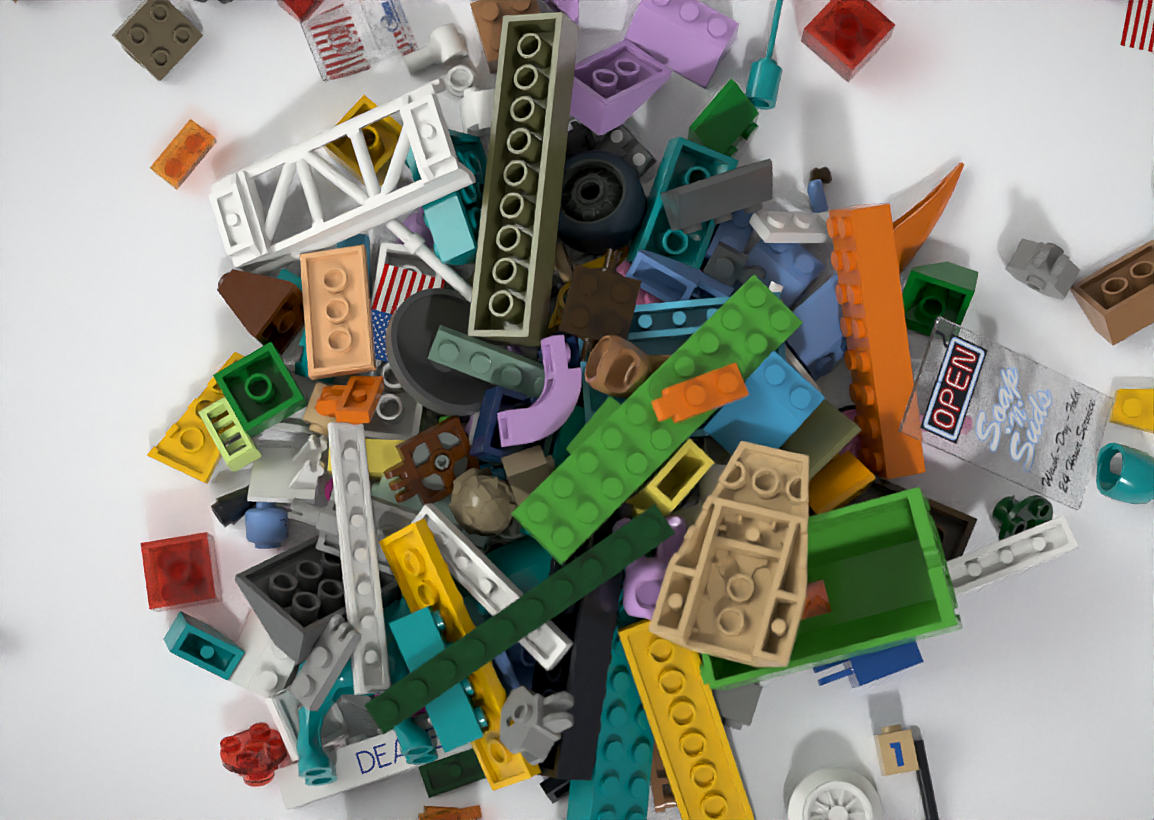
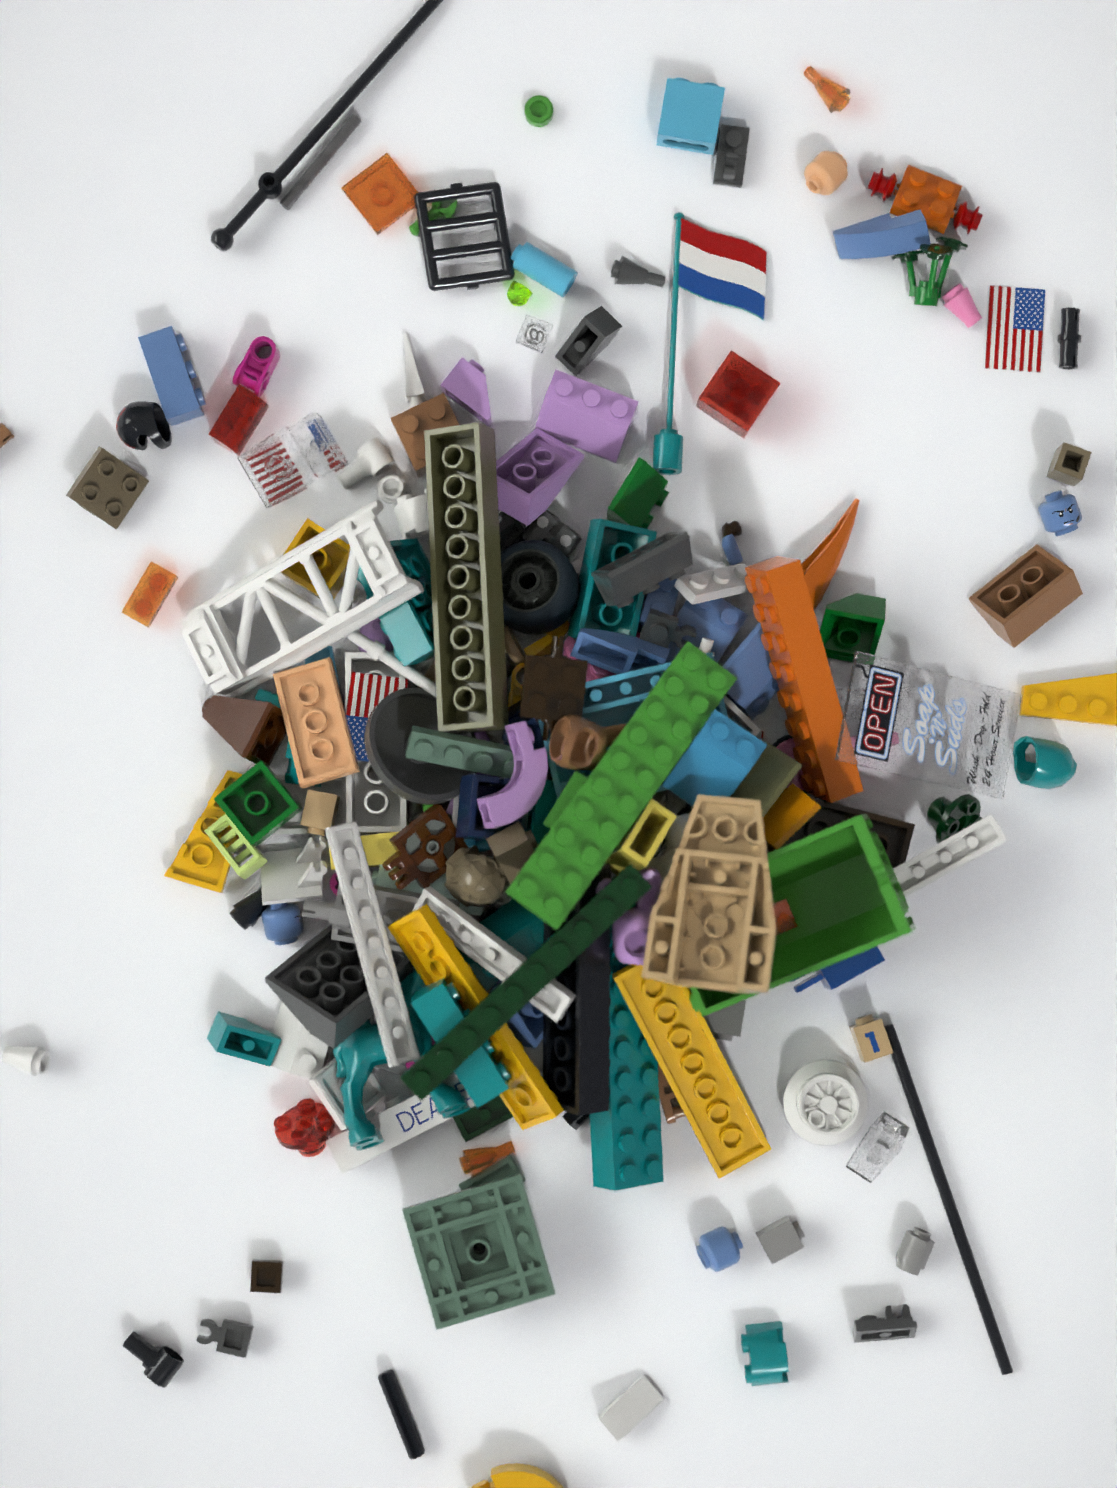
camera: 15 degrees left, 5 degrees up
(181, 572) = (213, 977): clear red brick -> none
(325, 663) = (358, 1044): light grey hinge -> none
(351, 402) = (344, 805): orange hinge -> none
(536, 722) = (553, 1069): light grey hinge -> none
(700, 394) = (656, 759): orange hinge -> none
(1043, 268) = (943, 586): light grey hinge -> none

